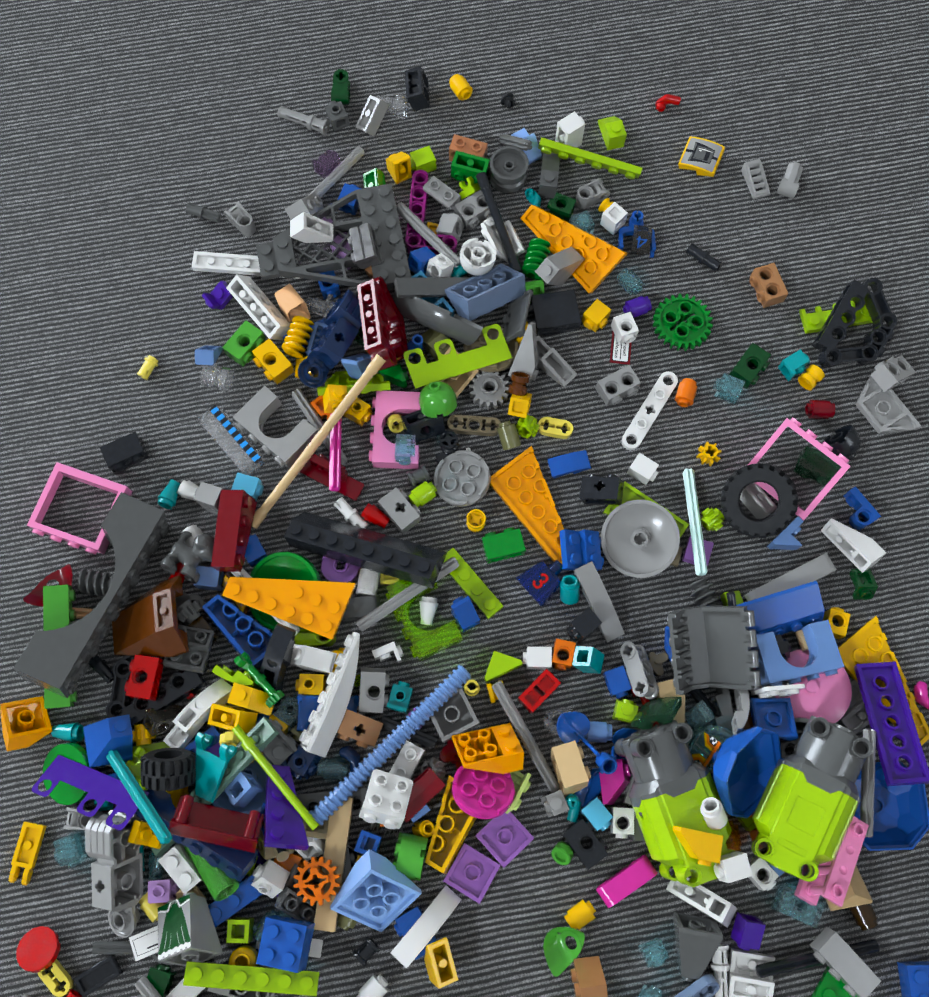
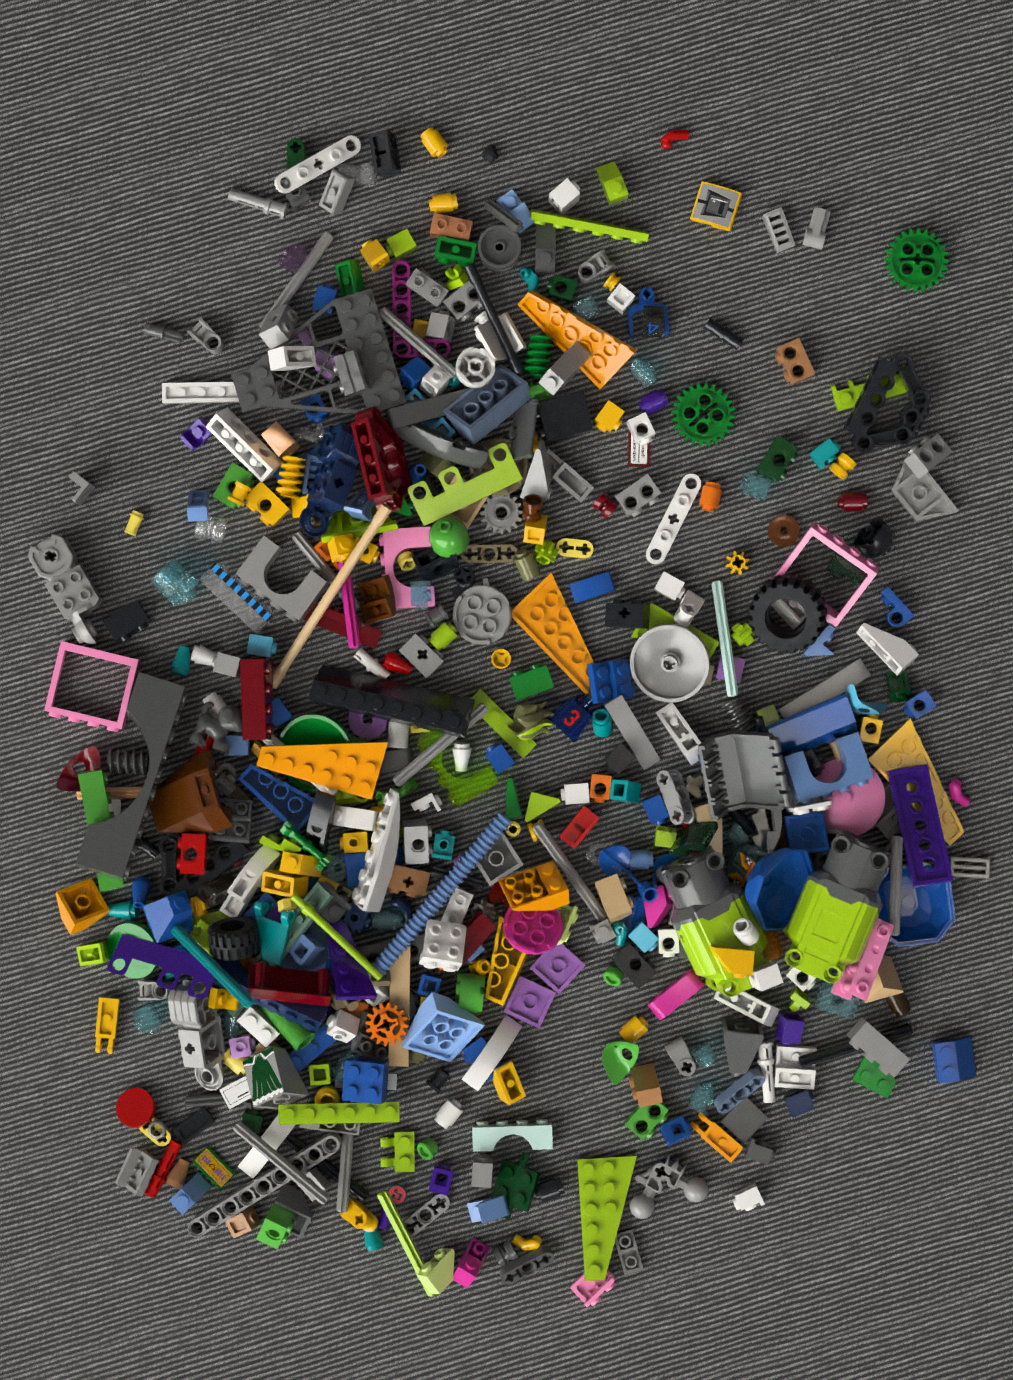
camera: 10 degrees left, 15 degrees up
(27, 773) = (93, 953): none -> lime slope
(48, 976) = (150, 1129): none -> light grey piece
(73, 412) = (67, 584): none -> light grey brick
(87, 713) = (140, 891): none -> blue cone
(104, 332) = (84, 491): none -> light grey panel
(174, 420) = (175, 583): none -> clear light blue gear
(246, 344) = (239, 493): none -> yellow bush
(346, 93) = (329, 157): none -> white piece
(364, 452) = (377, 598): none -> reddish brown slope
(370, 636) = (407, 787): none -> bright green piece
(464, 130) = (443, 203): none -> yellow brick
(473, 661) = (512, 804): none -> green slope
(500, 579) = (530, 720): none -> olive hair
(587, 391) = (610, 505): none -> dark red wheel
(627, 949) = (680, 1053): none -> light grey piece
(647, 608) = (680, 732): none -> white slope
(660, 489) = (688, 608): none -> white piece
(754, 422) = (775, 535): none -> reddish brown piece
(757, 900) = (799, 999): none -> lime tile
(827, 593) = (863, 707): none -> medium azure piece
(874, 206) = (916, 242): none -> green gear
(892, 602) = (925, 698): none -> blue brick

